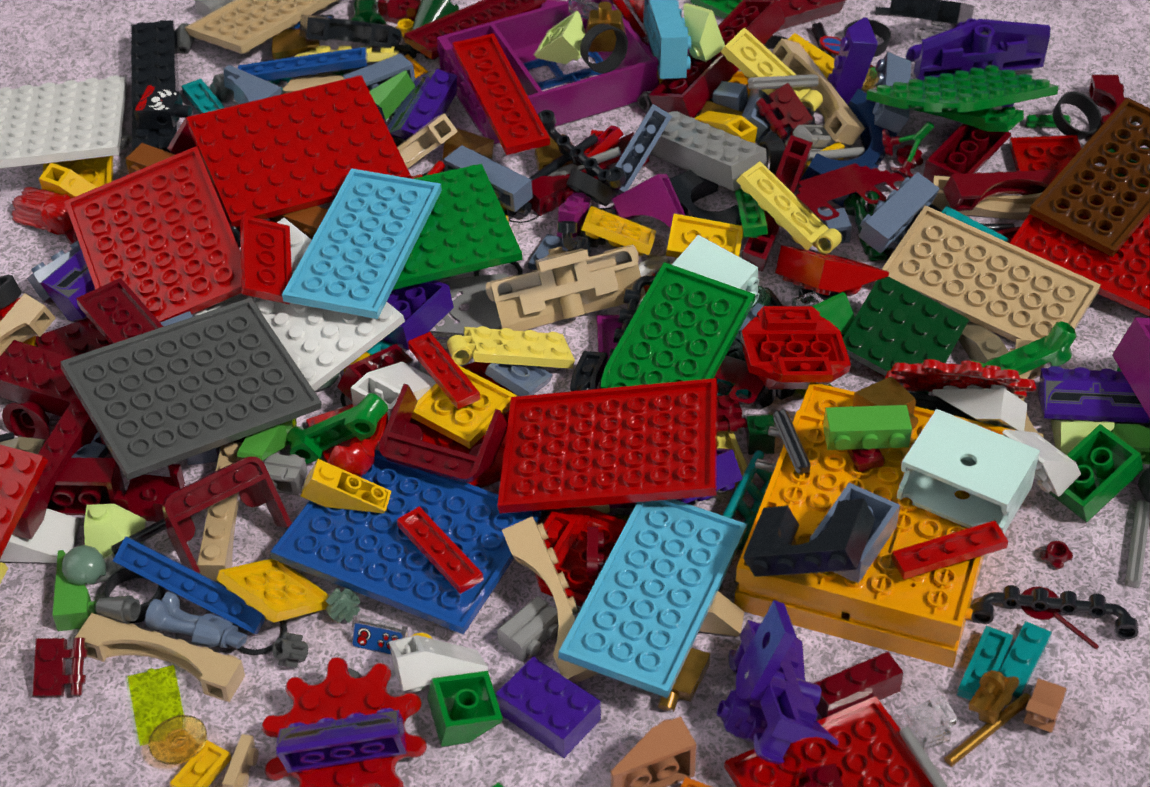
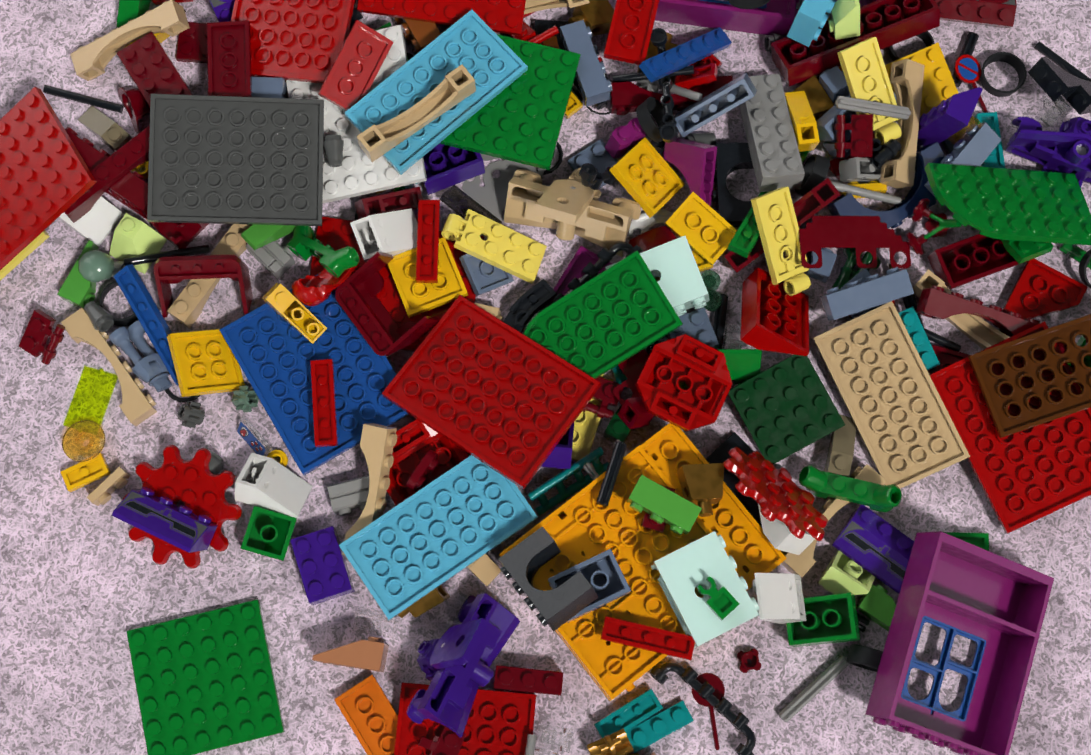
camera: 30 degrees right, 30 degrees up
(290, 336) = (334, 149): none -> dark grey cone
(340, 287) = (385, 136): none -> tan arch
(579, 129) = (685, 54): none -> blue plate
(767, 400) = (634, 413): none -> dark red brick
(822, 112) = (887, 152): none -> black pin
(994, 451) = (720, 601): none -> green plate

